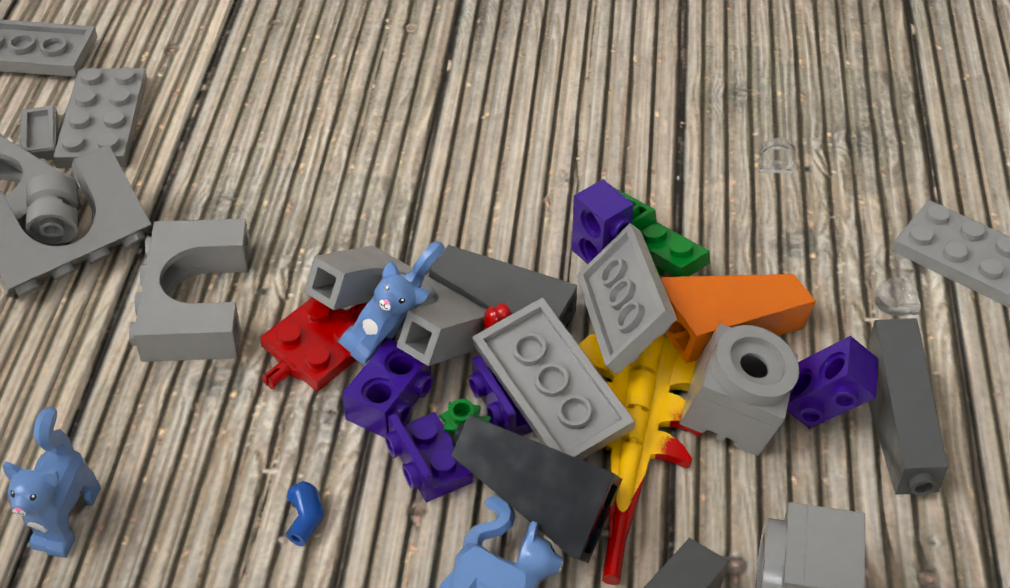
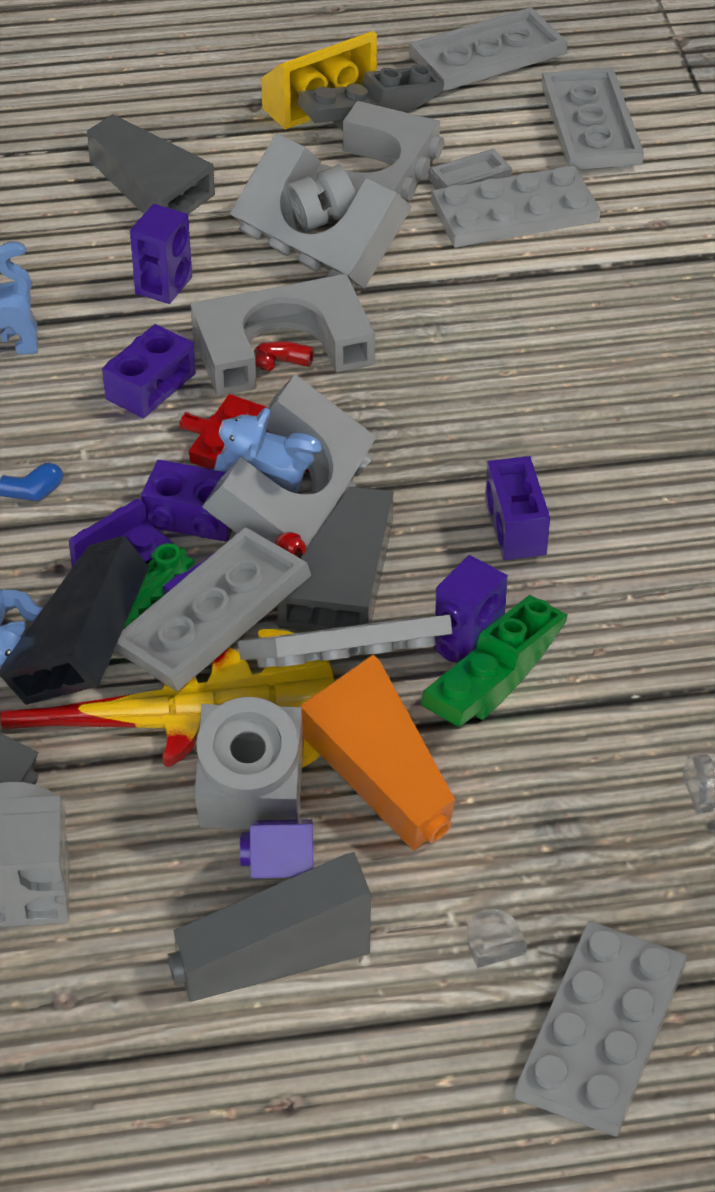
camera: 75 degrees right, 0 degrees up
(45, 344) = (161, 253): none -> dark purple brick
(194, 392) = (149, 370): none -> dark purple brick
(216, 289) = (284, 351): none -> red arm
(487, 181) = (517, 508): none -> dark purple brick

